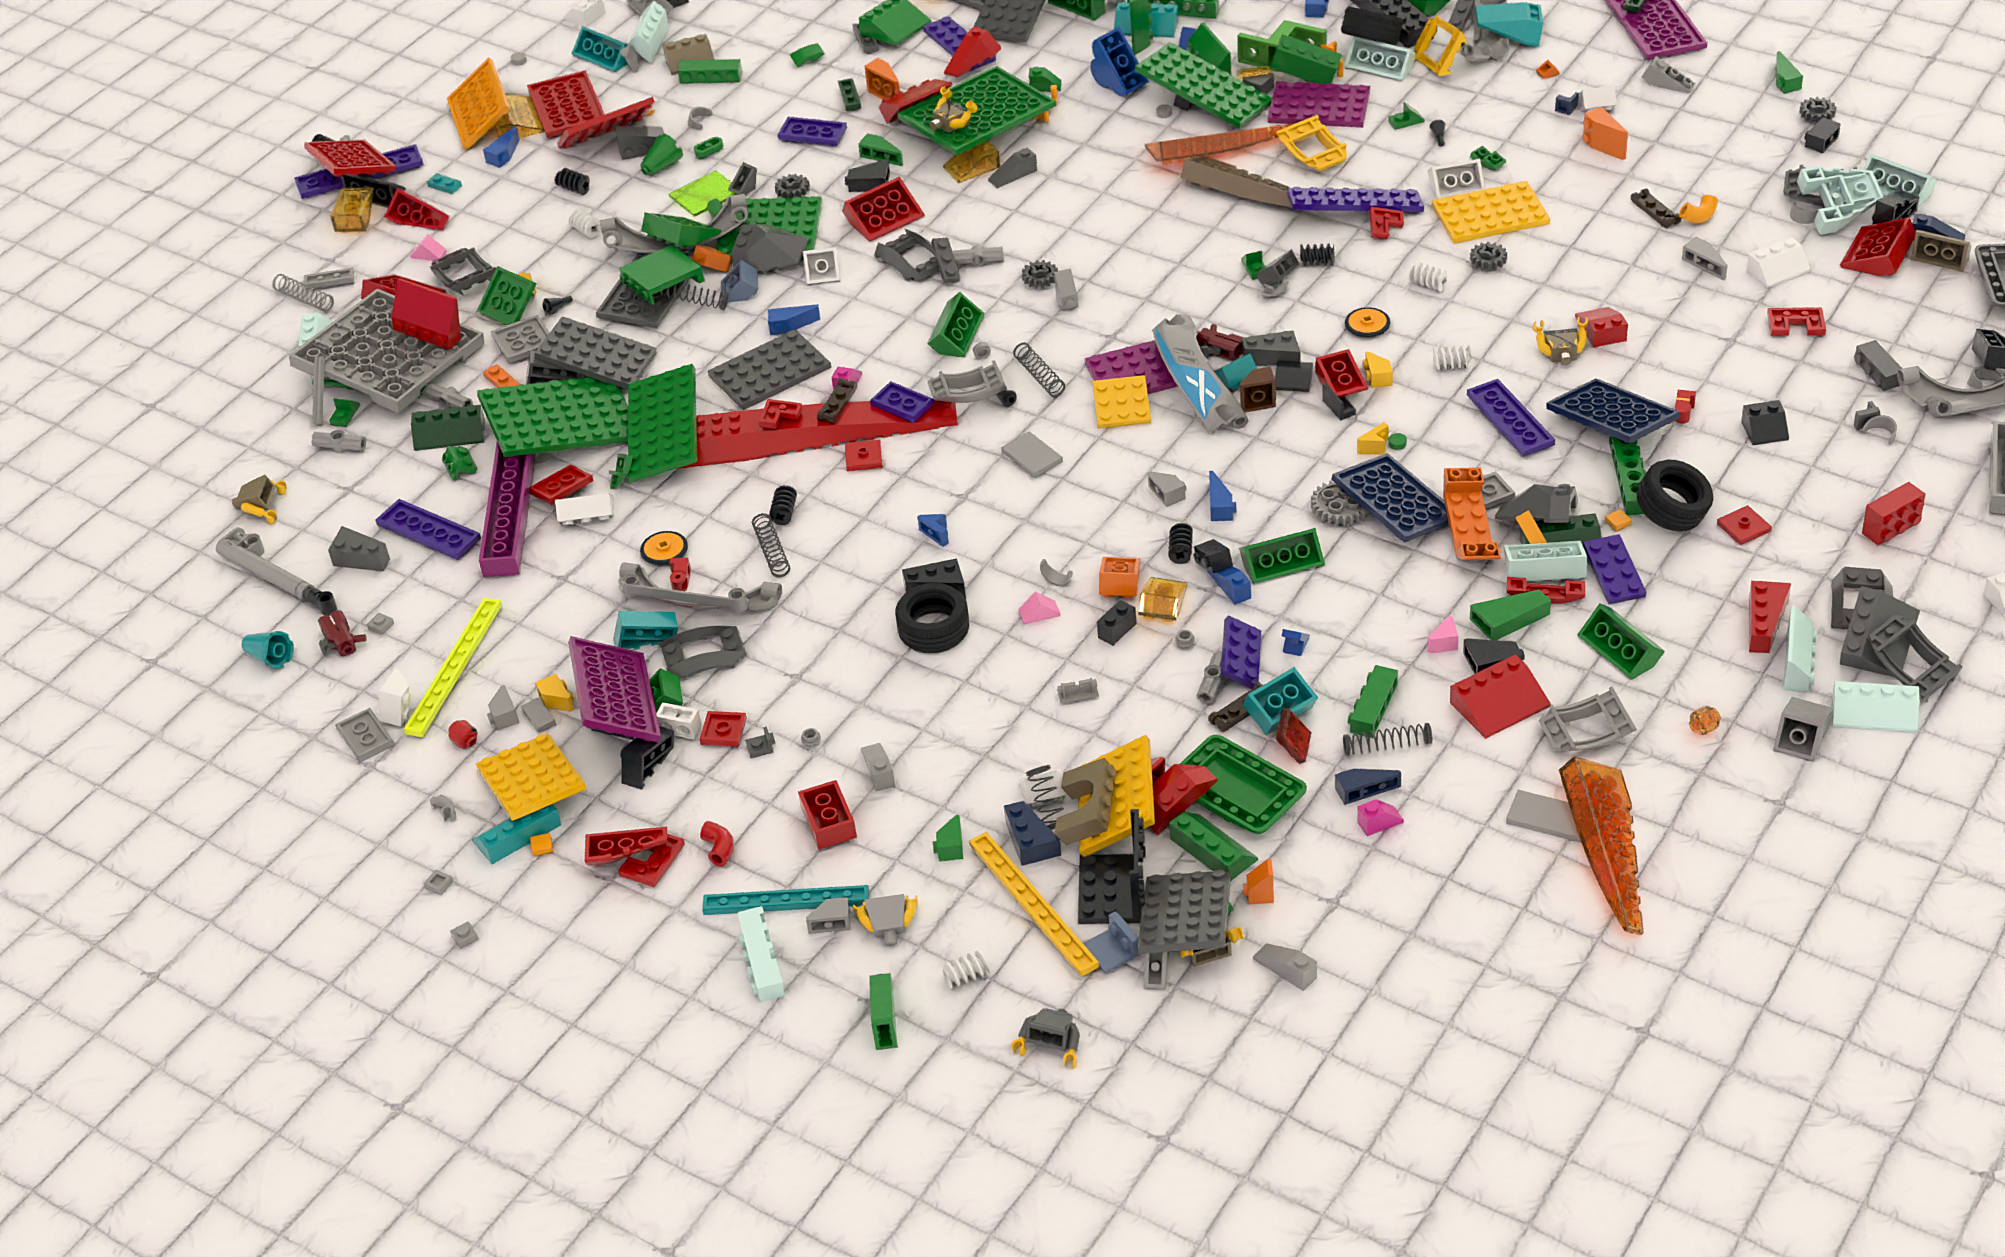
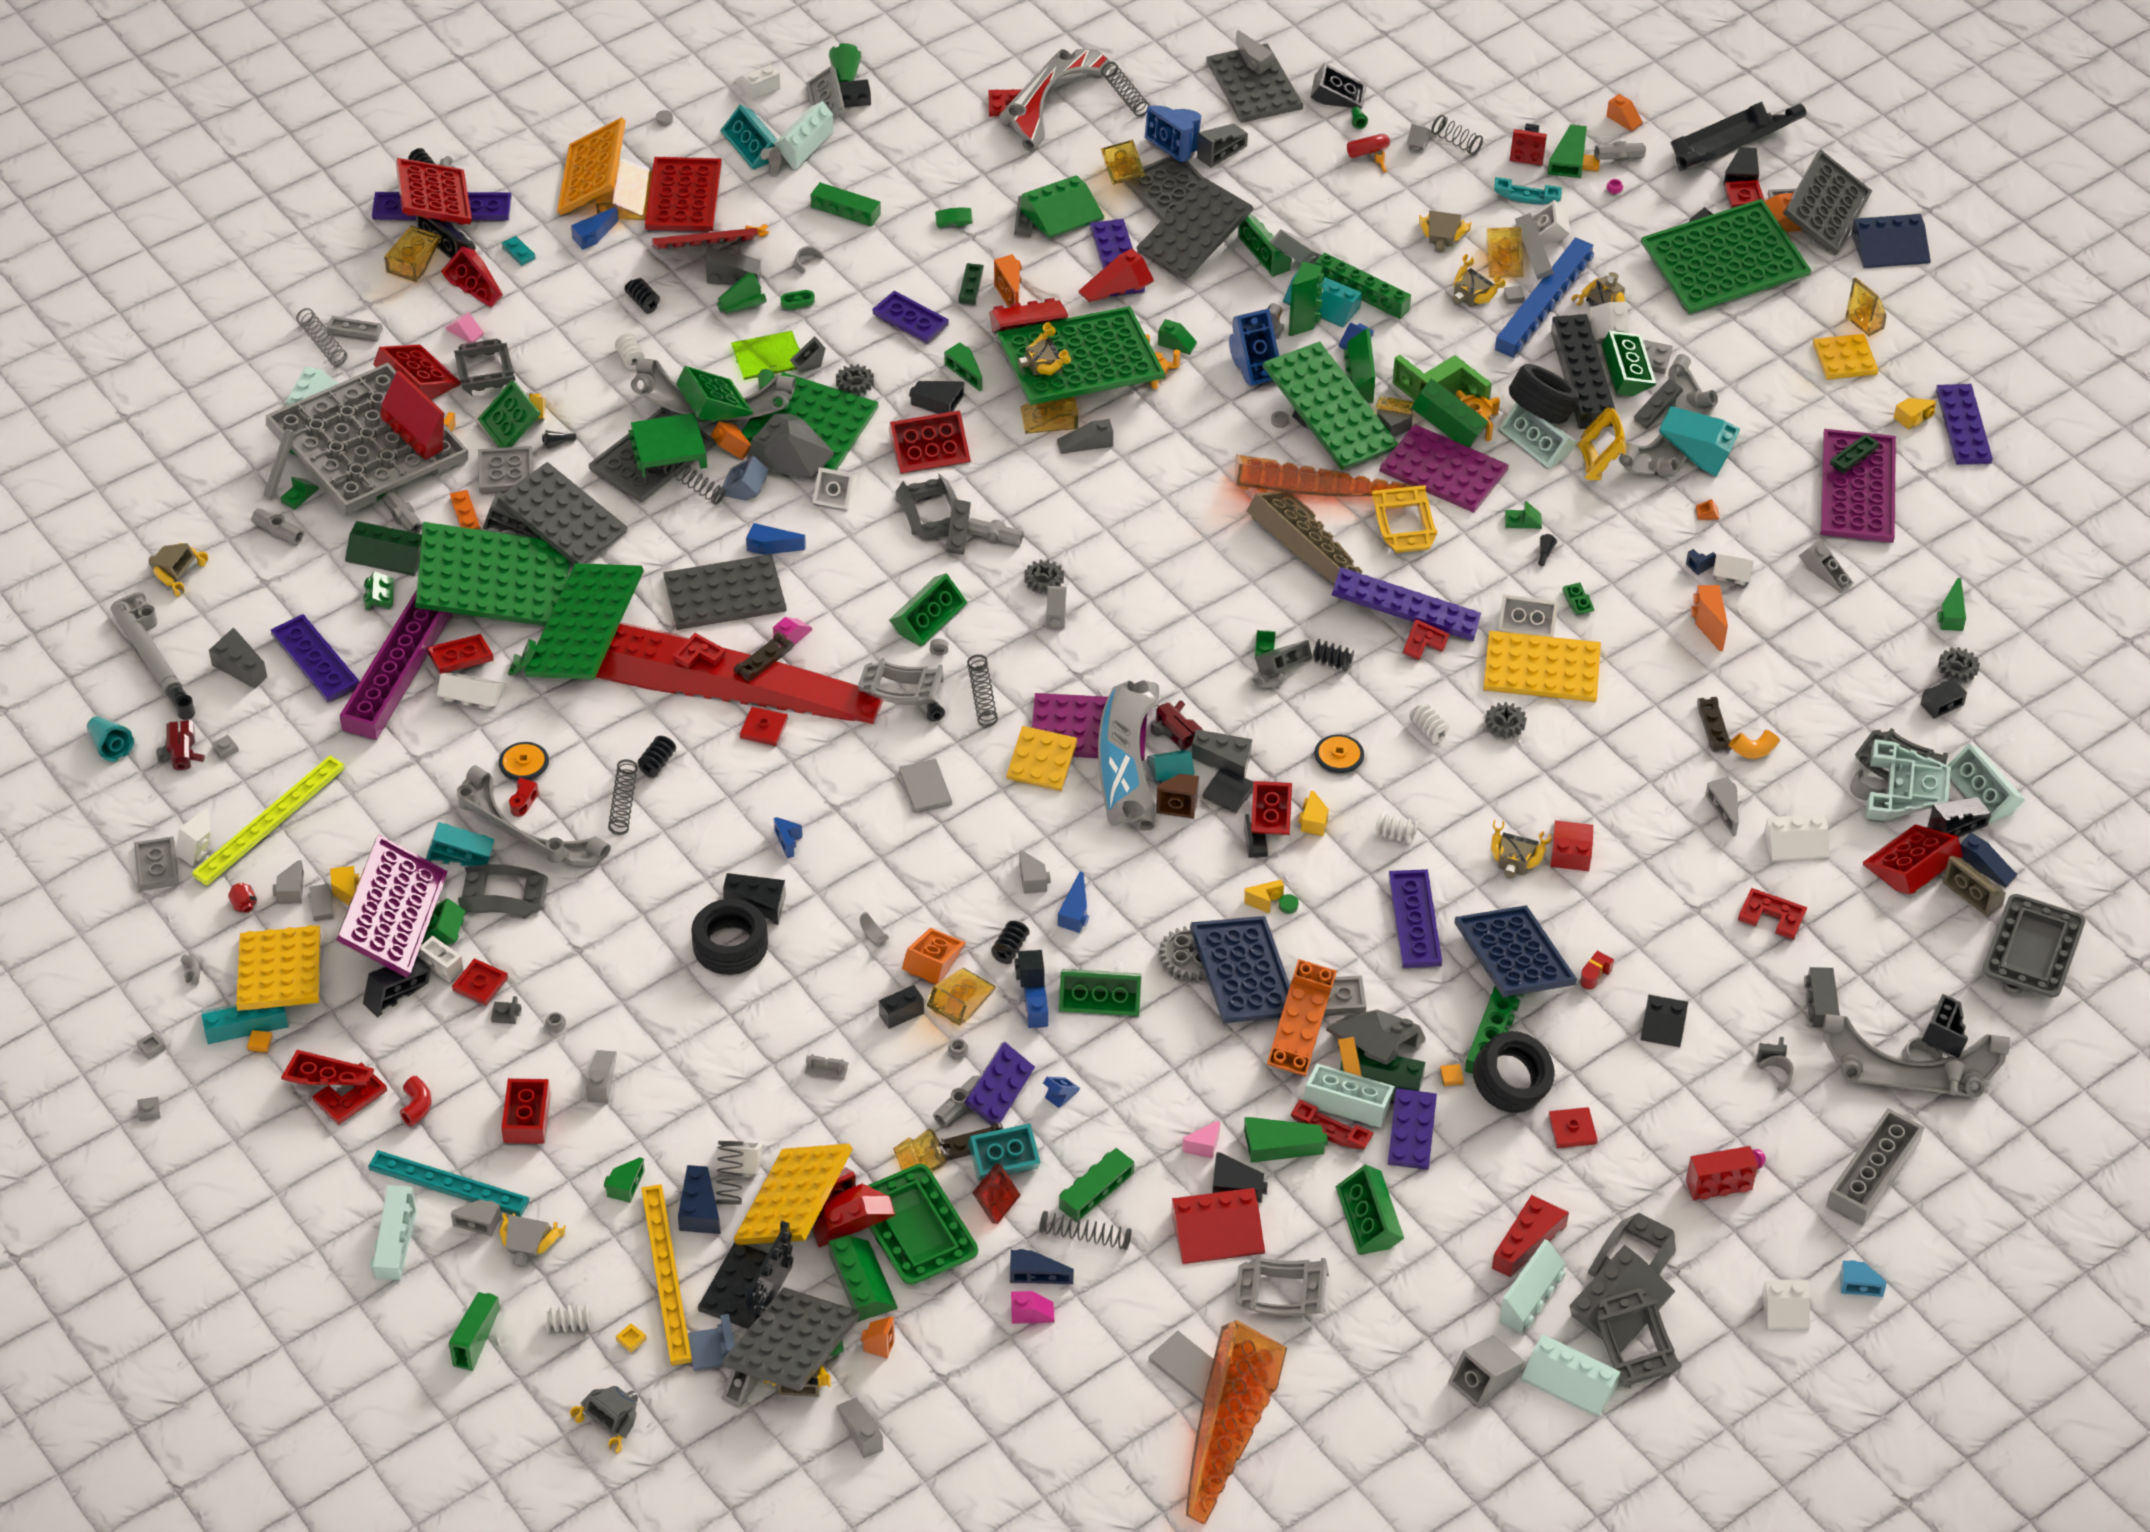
camera: 15 degrees right, 5 degrees up
(687, 49) = (835, 171): dark tan slope -> none
(902, 401) = (827, 680): dark purple tile -> none
(1031, 966) = (631, 1337): none -> yellow plate
(1038, 608) = (838, 962): bright pink slope -> none
(1094, 815) = (755, 1211): dark tan arch -> none
(1201, 727) = (921, 1150): none -> clear yellow slope
(1704, 720) = (1396, 1326): clear orange head -> none

